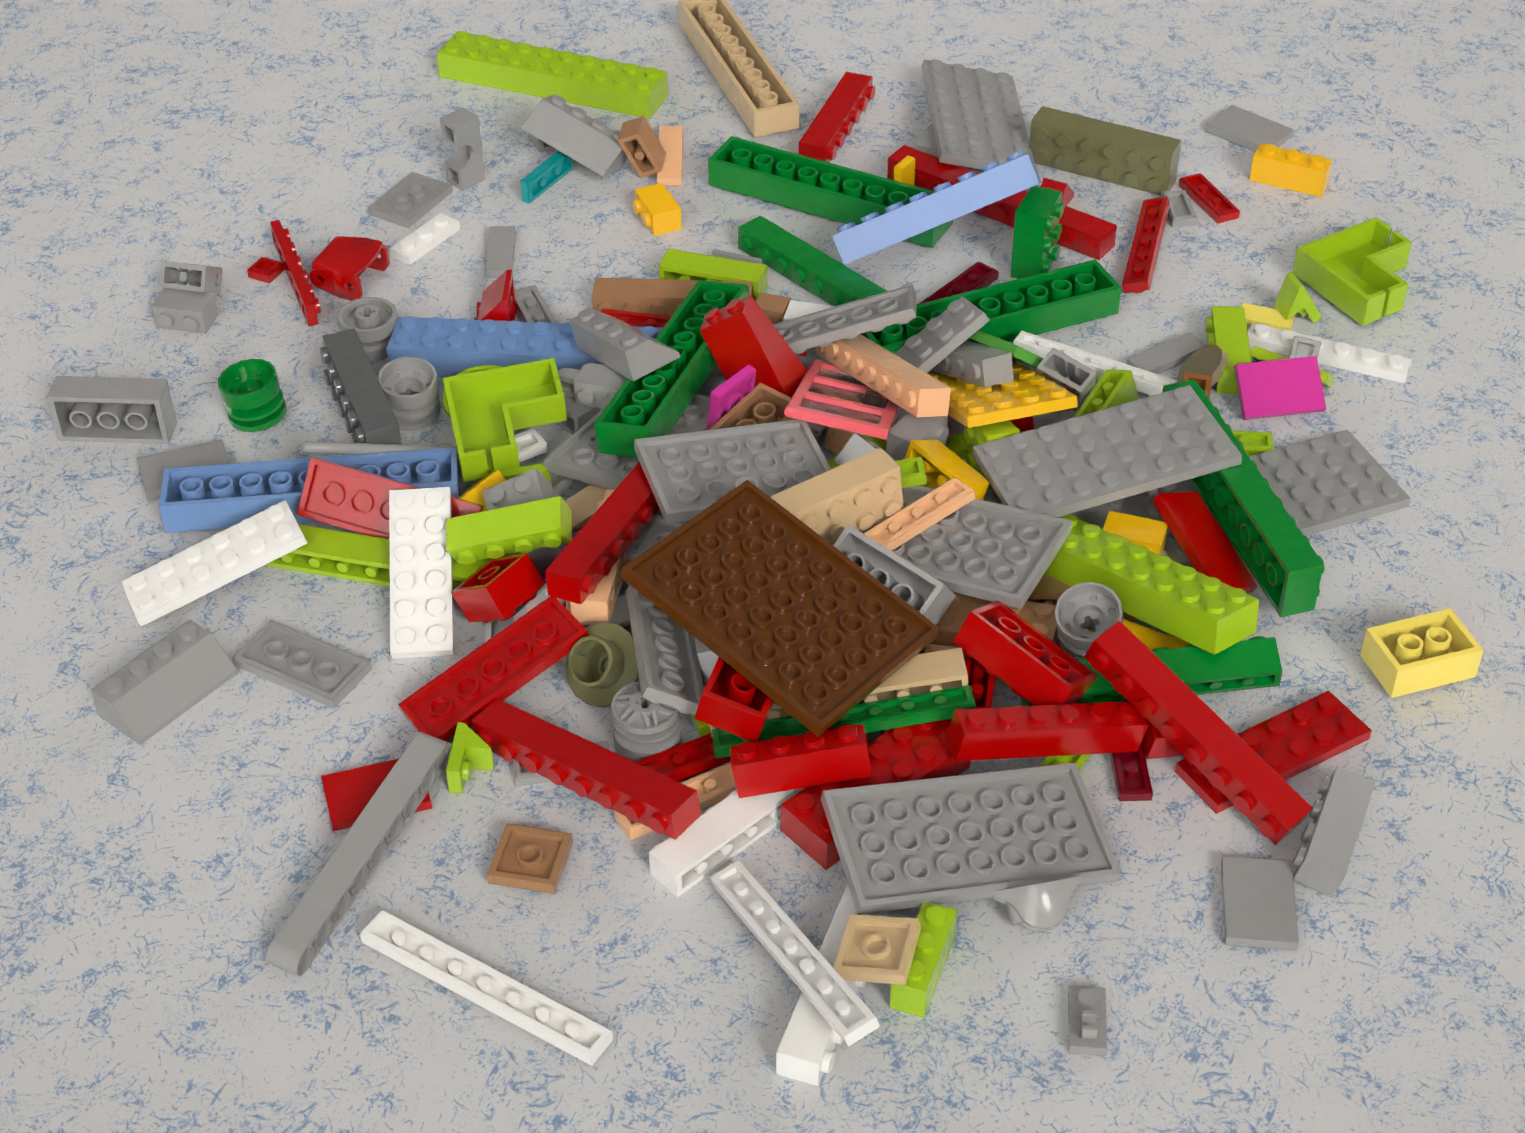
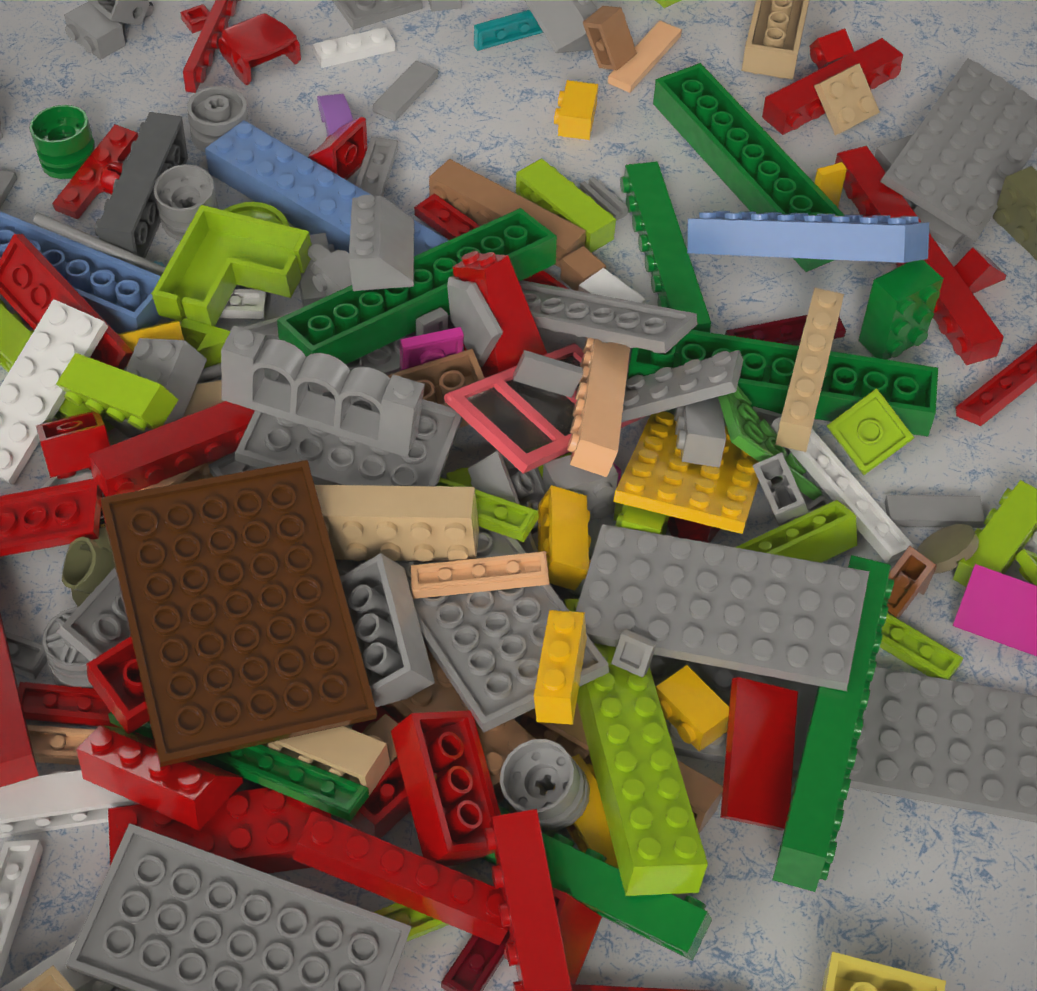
camera: 30 degrees right, 10 degrees up
(303, 407) = (97, 172): none -> red plate
(462, 286) = (334, 111): none -> medium lavender slope
(638, 426) = (397, 398): none -> light grey fence
(705, 384) = (432, 322): none -> light grey plate
(736, 350) = (474, 317): none -> light grey tile
(814, 93) = (830, 48): none -> red brick
(835, 373) = (548, 374): none -> light grey tile
(858, 121) = (847, 99): none -> tan plate
(1016, 293) = (809, 370): none -> tan brick
(1048, 532) = (560, 667): none -> yellow brick
(1078, 509) = (634, 653): none -> light grey plate
(1084, 321) = (870, 432): none -> lime tile

